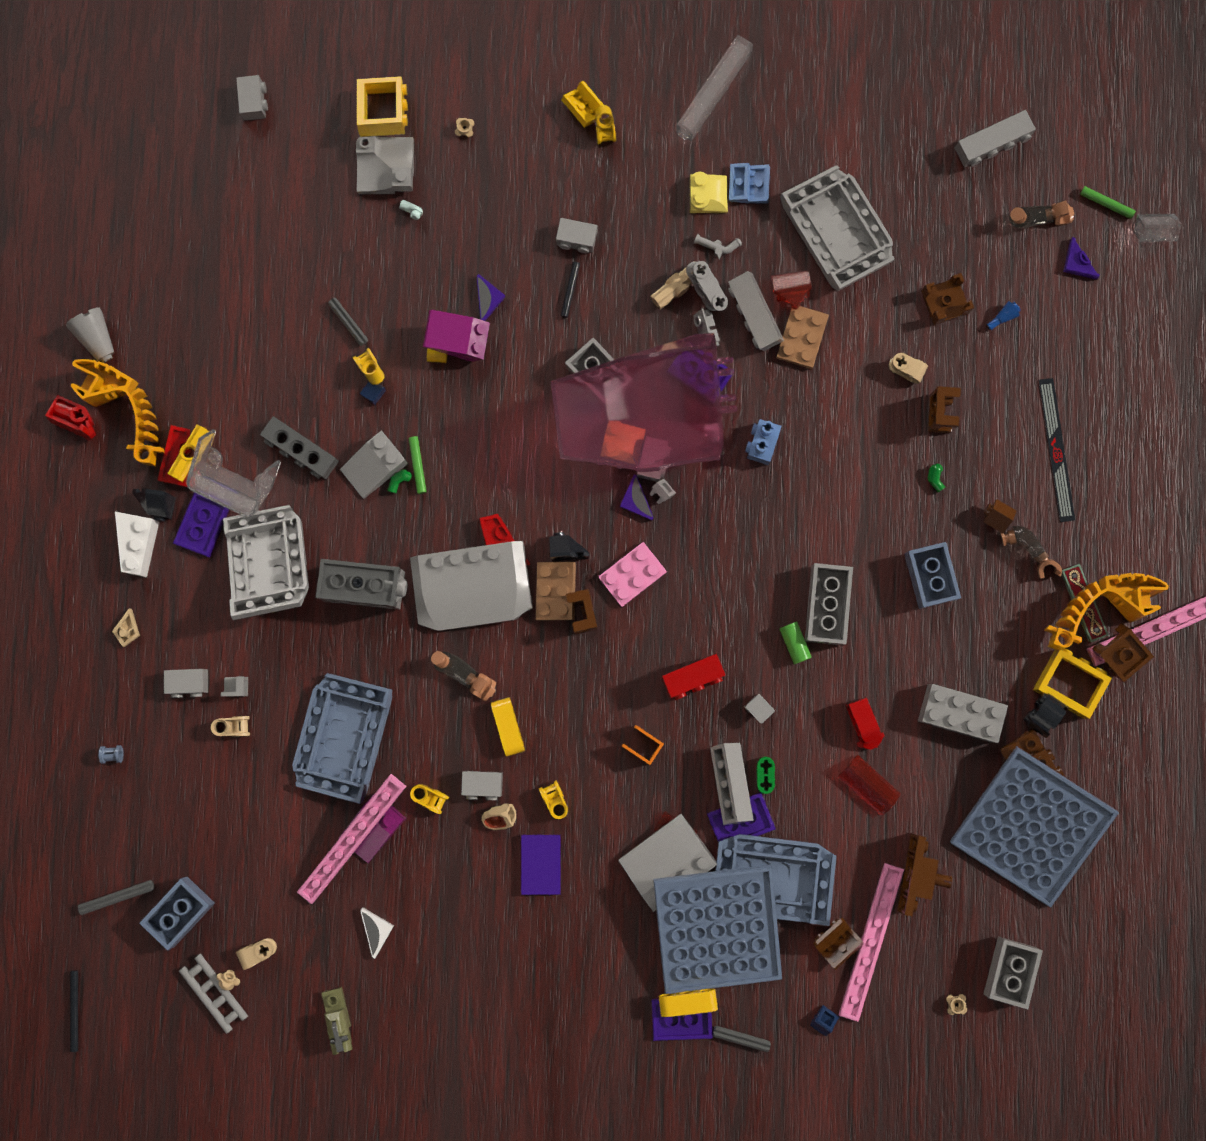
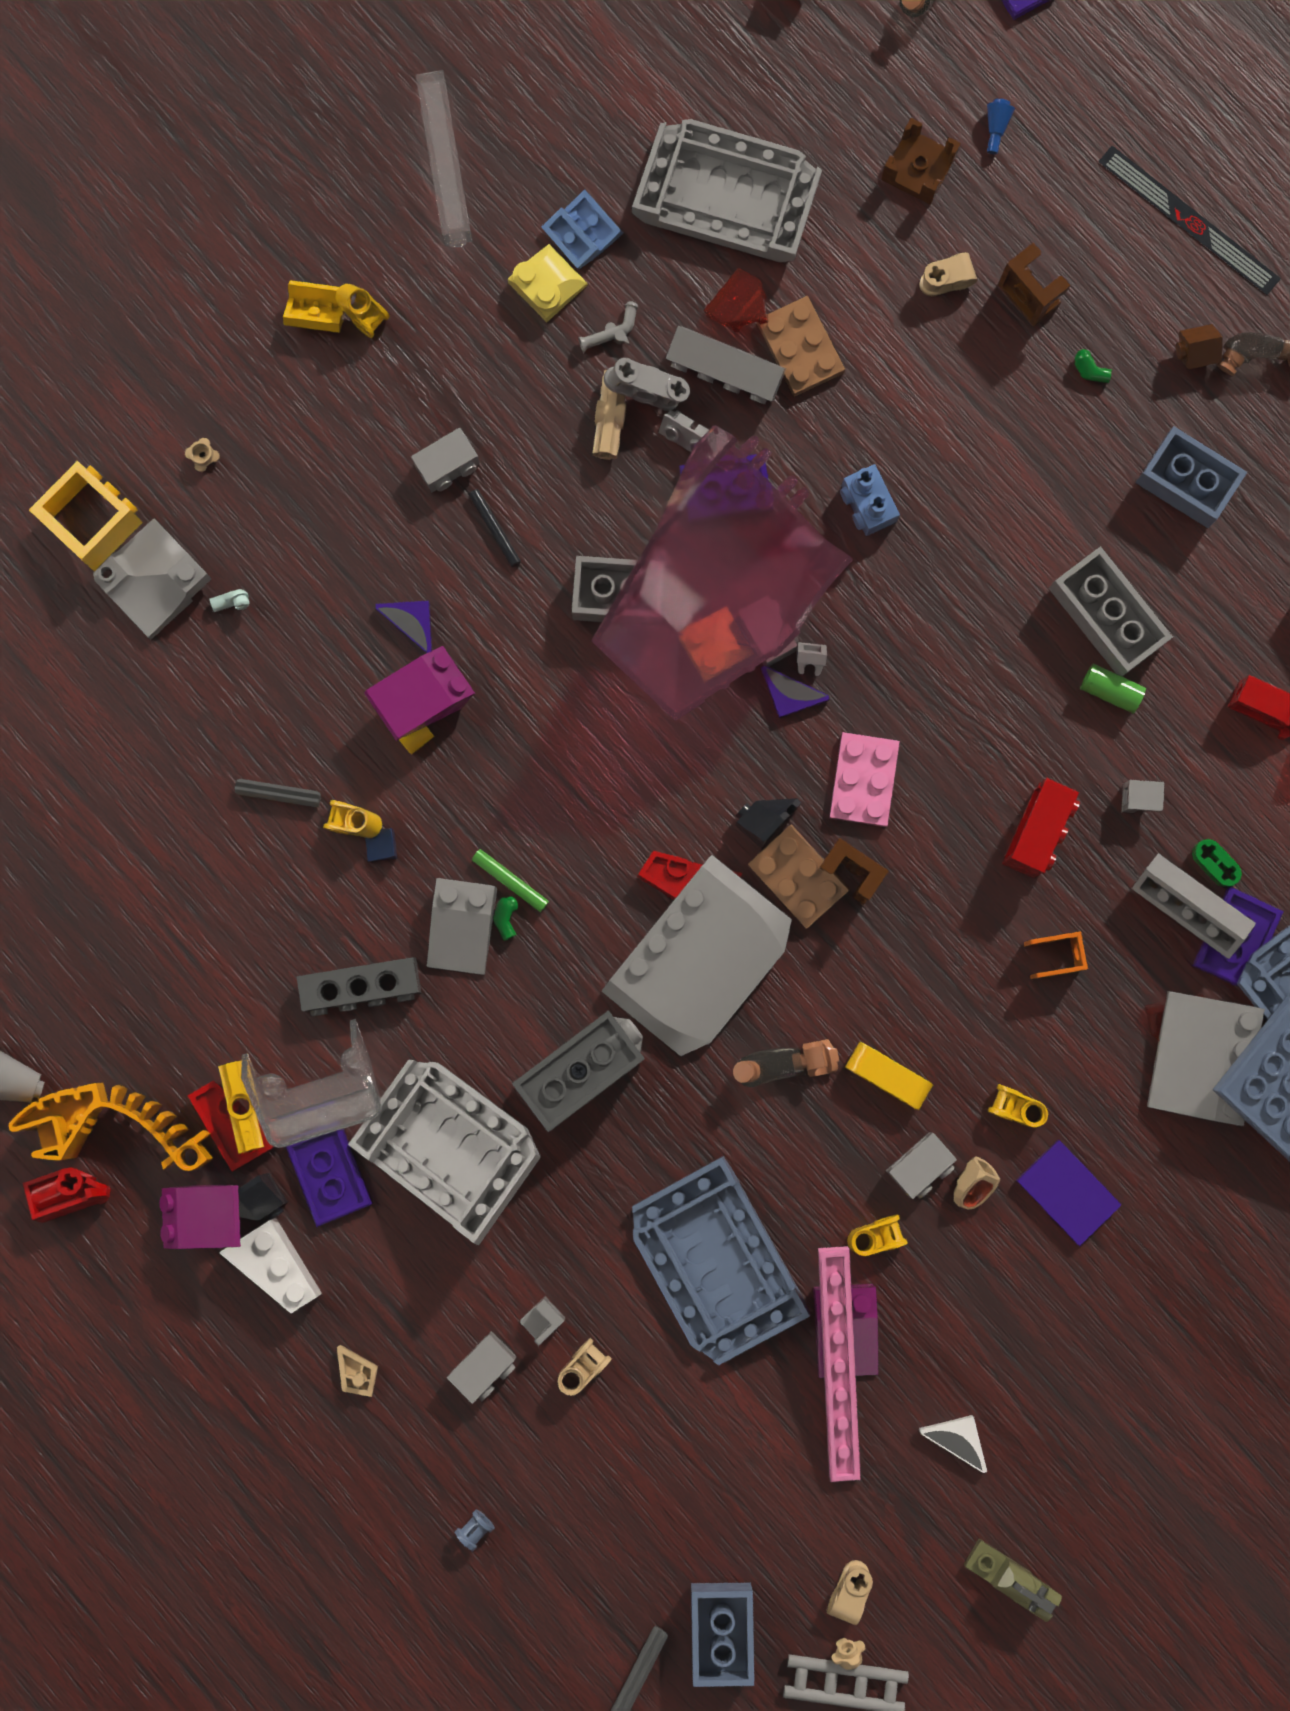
camera: 45 degrees left, 0 degrees up
(121, 486) = (200, 1216): none -> magenta slope

